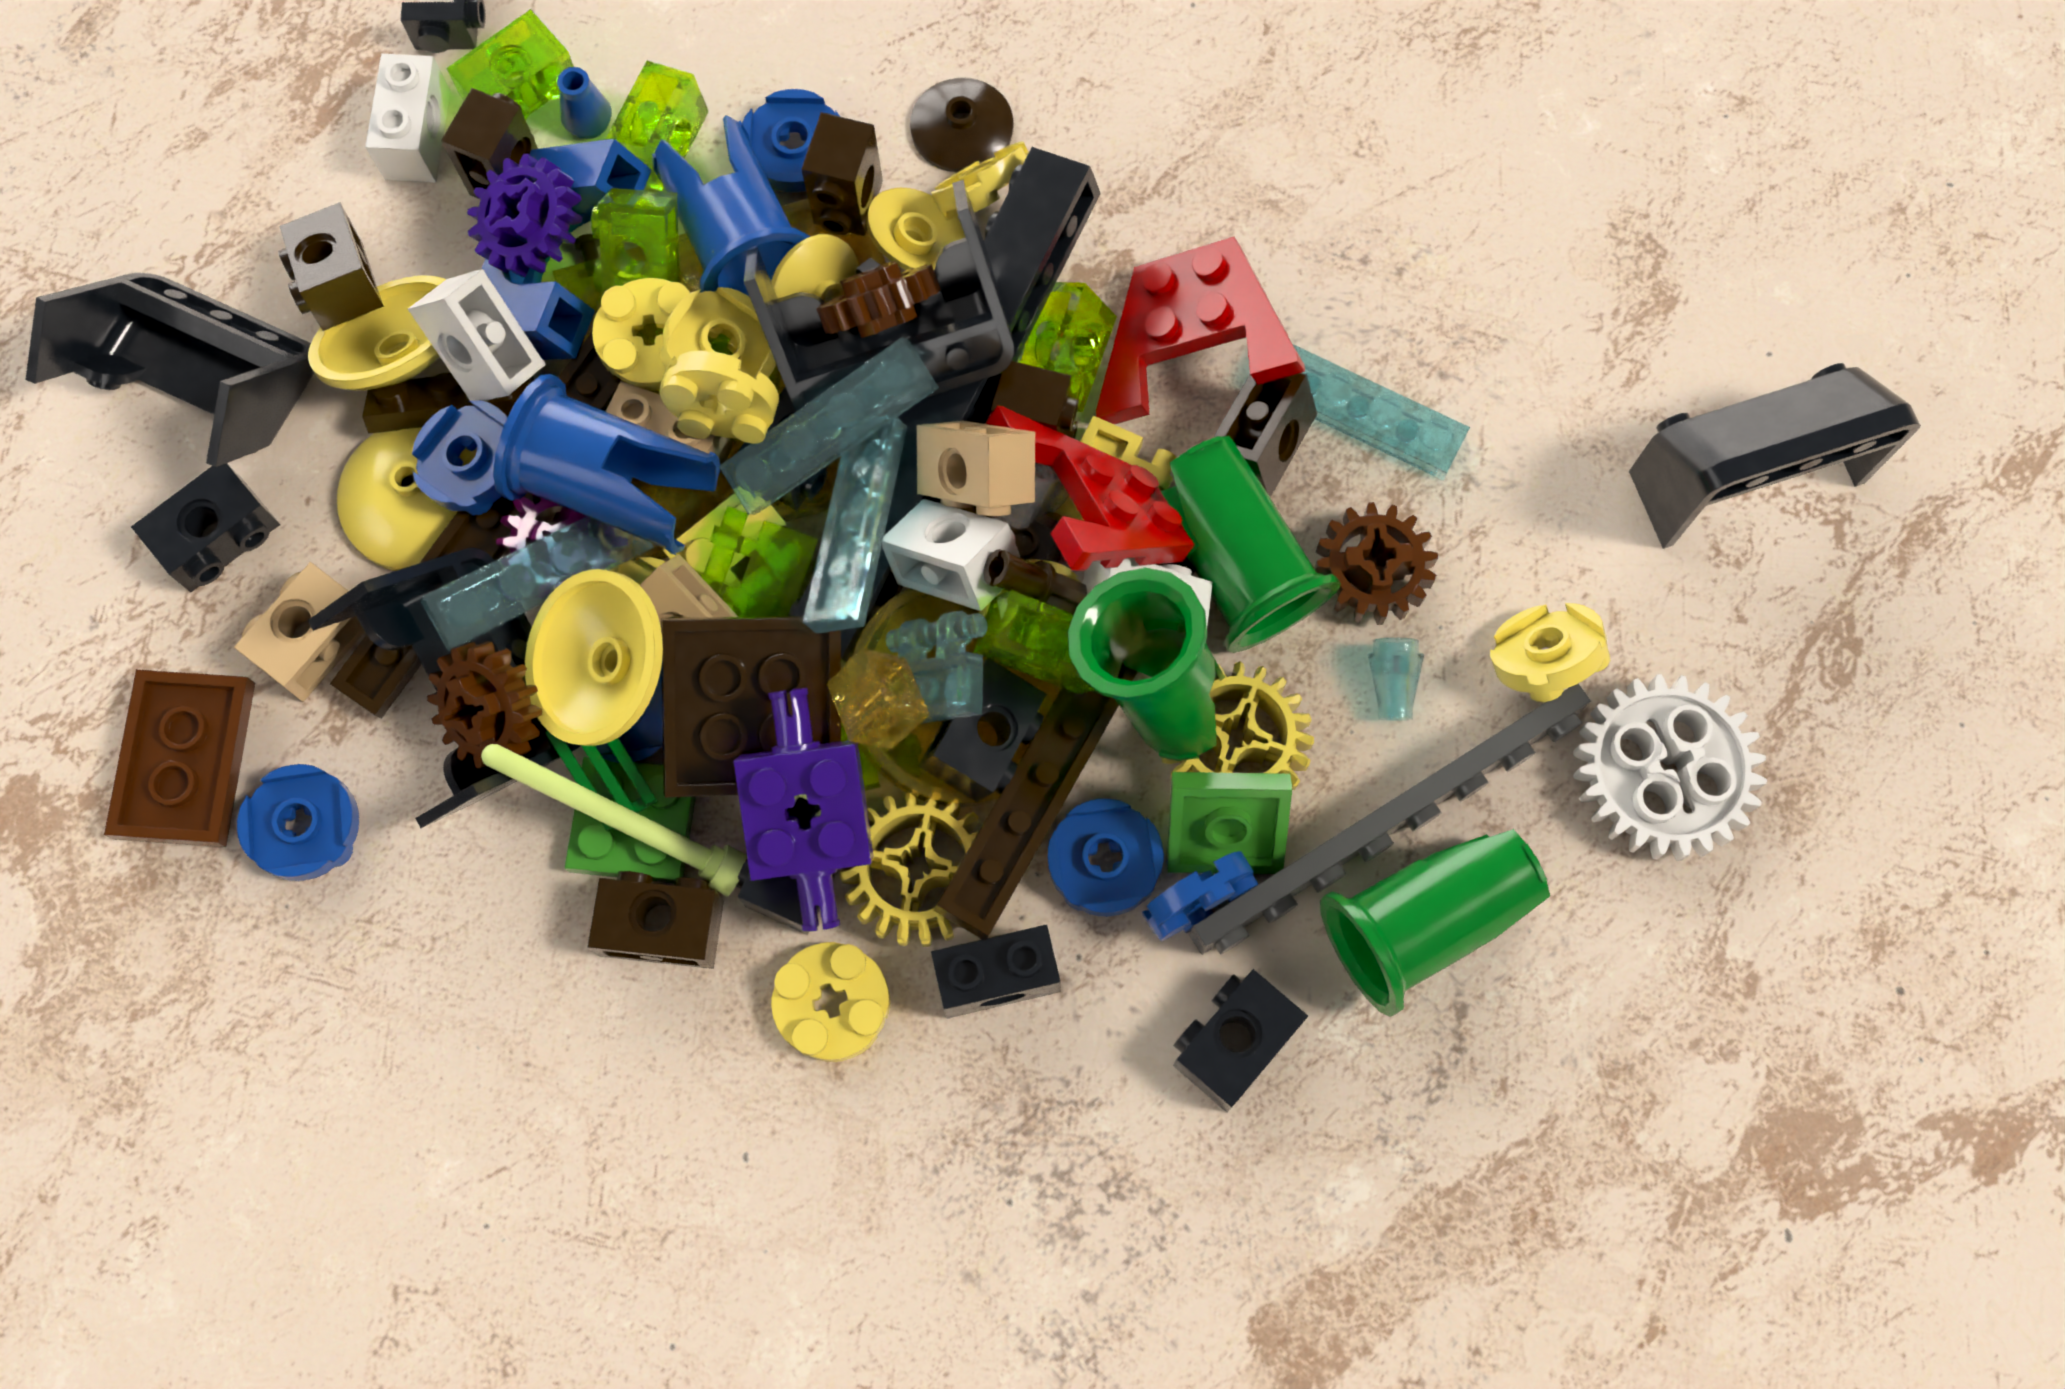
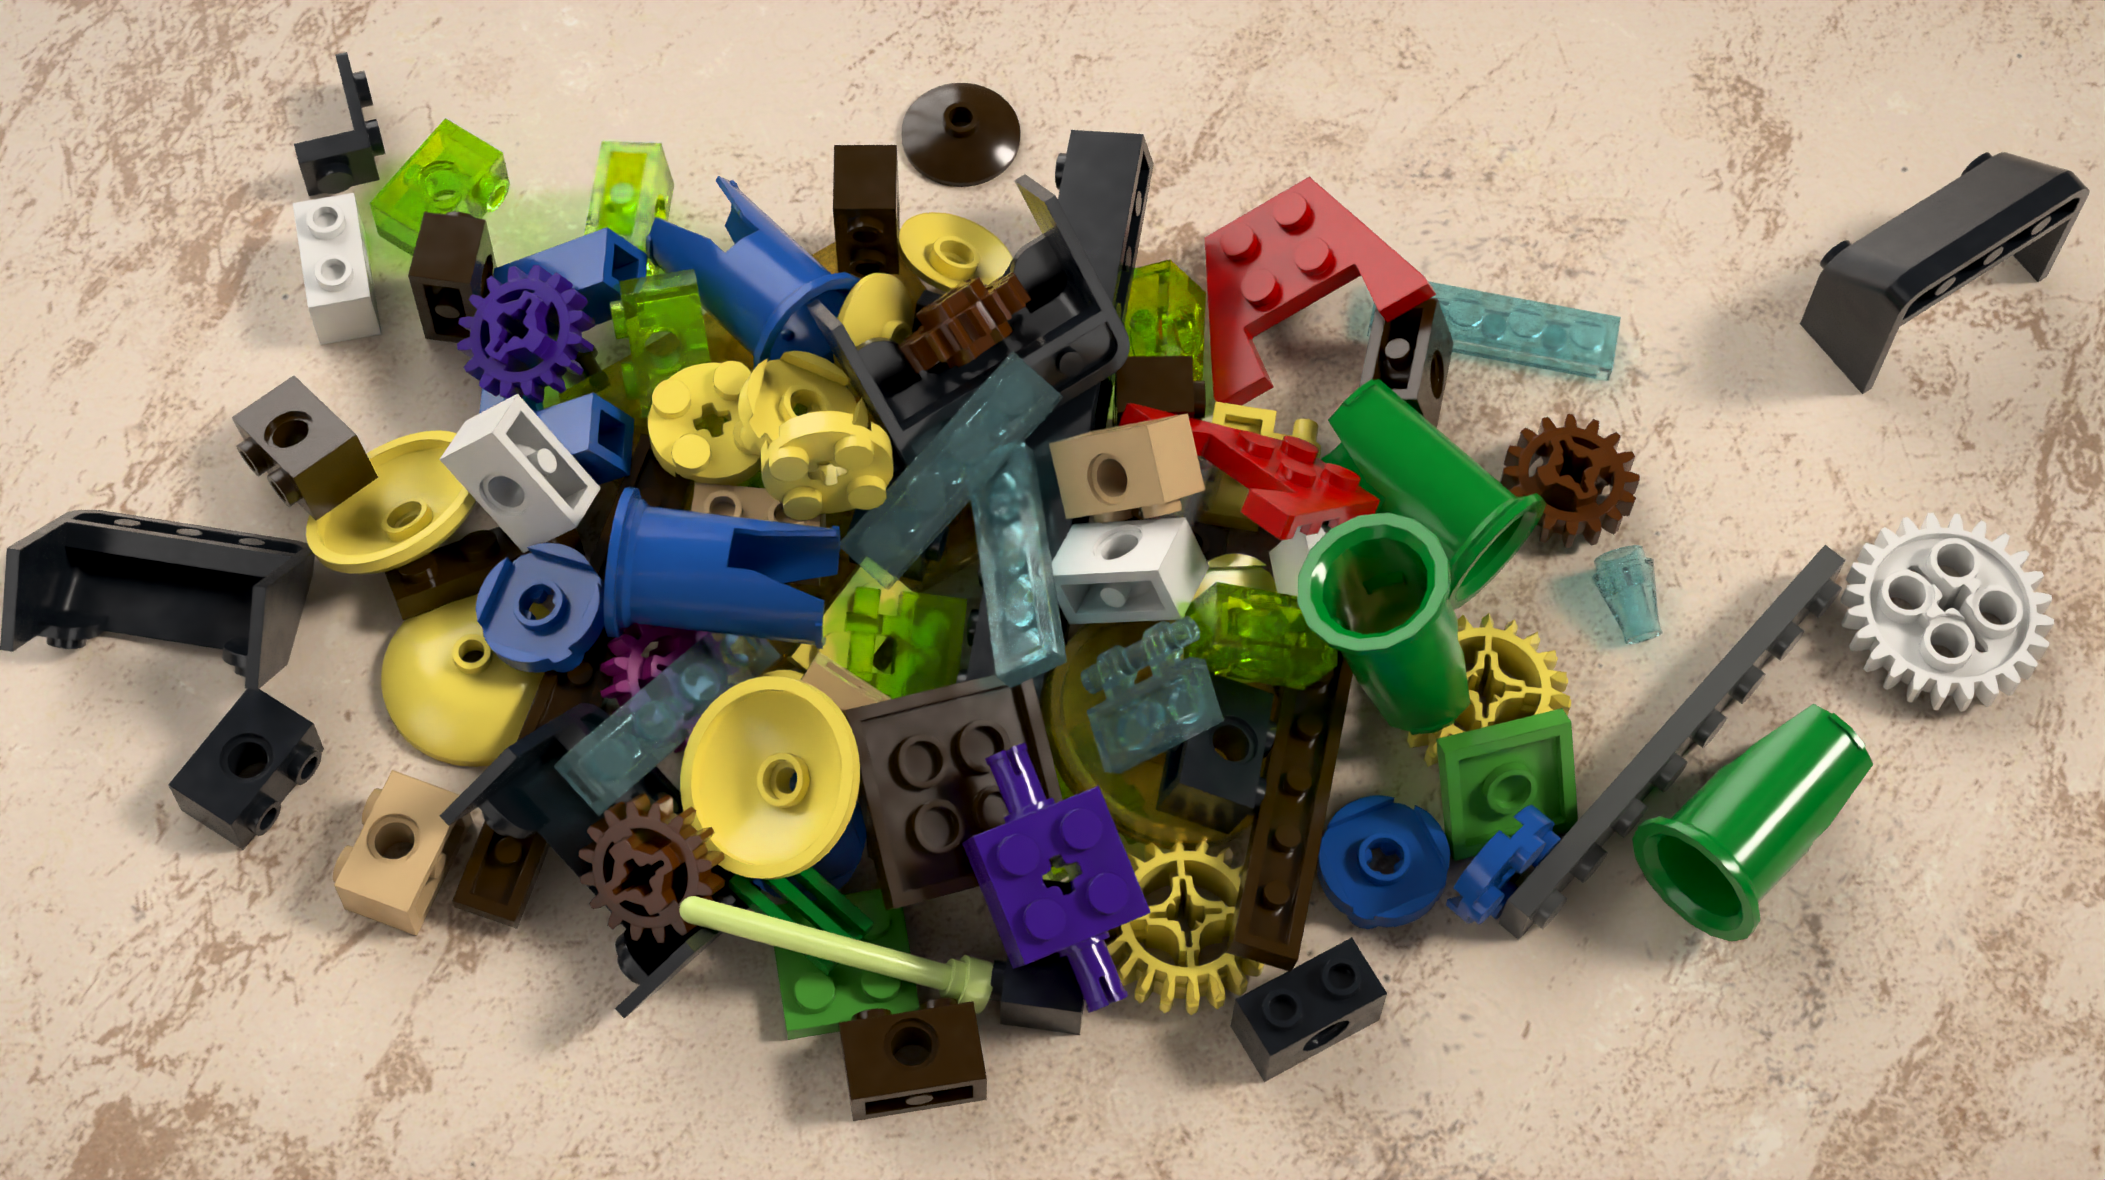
camera: 20 degrees left, 10 degrees down
(180, 758) = (300, 1030): reddish brown plate -> none
(324, 843) = (455, 1102): blue plate -> none
(582, 106) = (532, 209): blue cone -> none
(773, 122) = (801, 169): blue plate -> none
(860, 1017) = (1133, 1057): light yellow plate -> none
(877, 699) = (1102, 737): clear yellow brick -> none
(981, 180) = (997, 193): light yellow plate -> none
(1034, 580) = (1205, 566): dark brown axle -> none
(1266, 1015) = (1584, 1048): black brick -> none
(1575, 650) = (1784, 522): light yellow plate -> none

